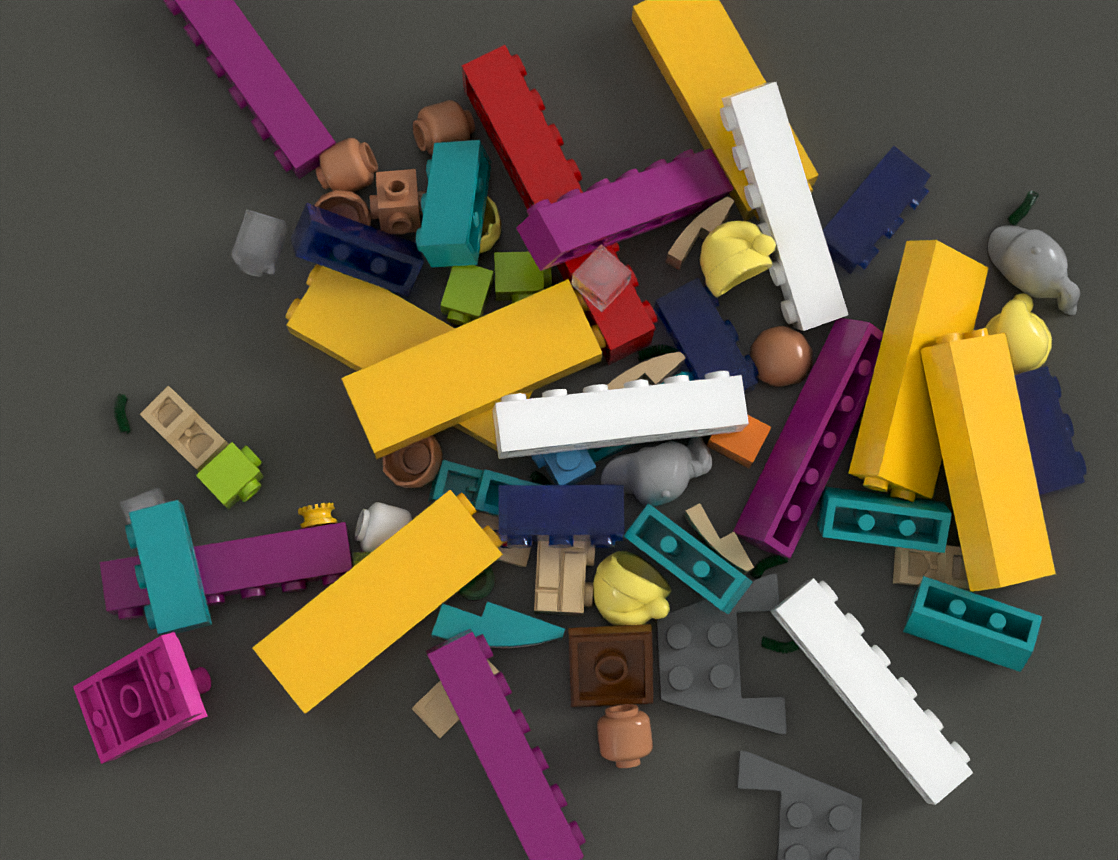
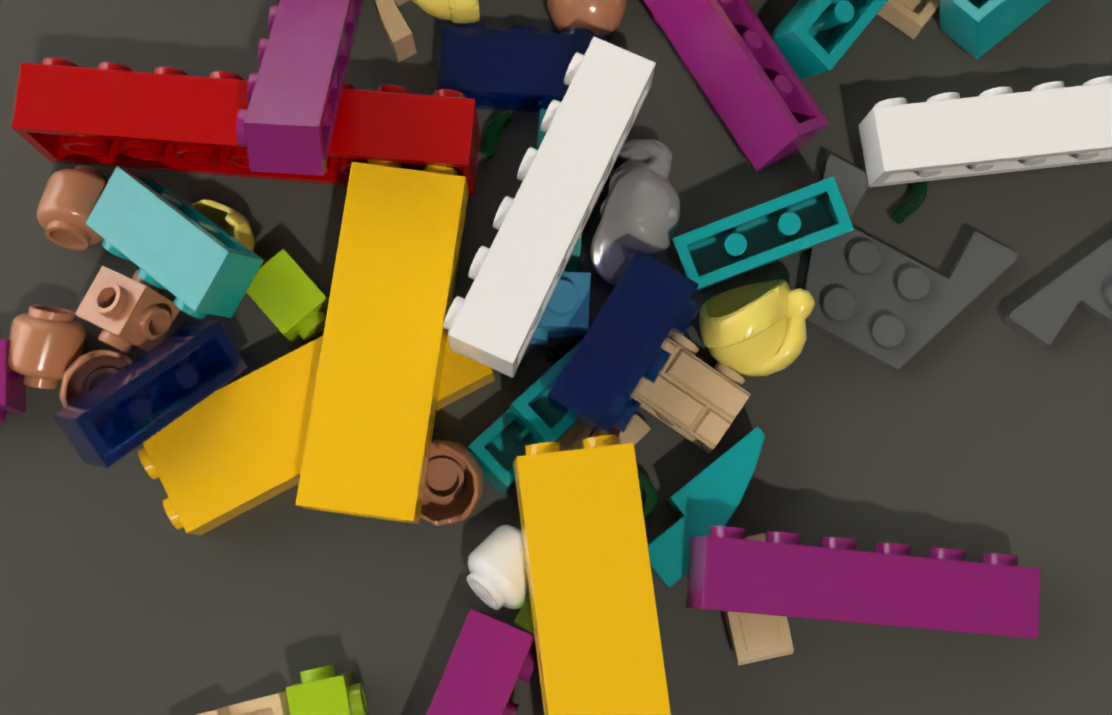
camera: 55 degrees left, 0 degrees up
(259, 243) = (67, 505): clear brick -> none
(317, 516) = (442, 638): yellow bush -> none
(518, 276) = (307, 225): lime brick -> none
(601, 278) = (377, 116): clear brick -> none
(611, 665) = (828, 400): reddish brown tile -> none
(624, 735) = (917, 435): nougat head -> none
(653, 370) = (515, 142): tan slope -> none
(727, 548) = (770, 182): tan slope -> none
(742, 445) = (665, 102): orange brick -> none
(760, 569) = (811, 171): dark green leg -> none

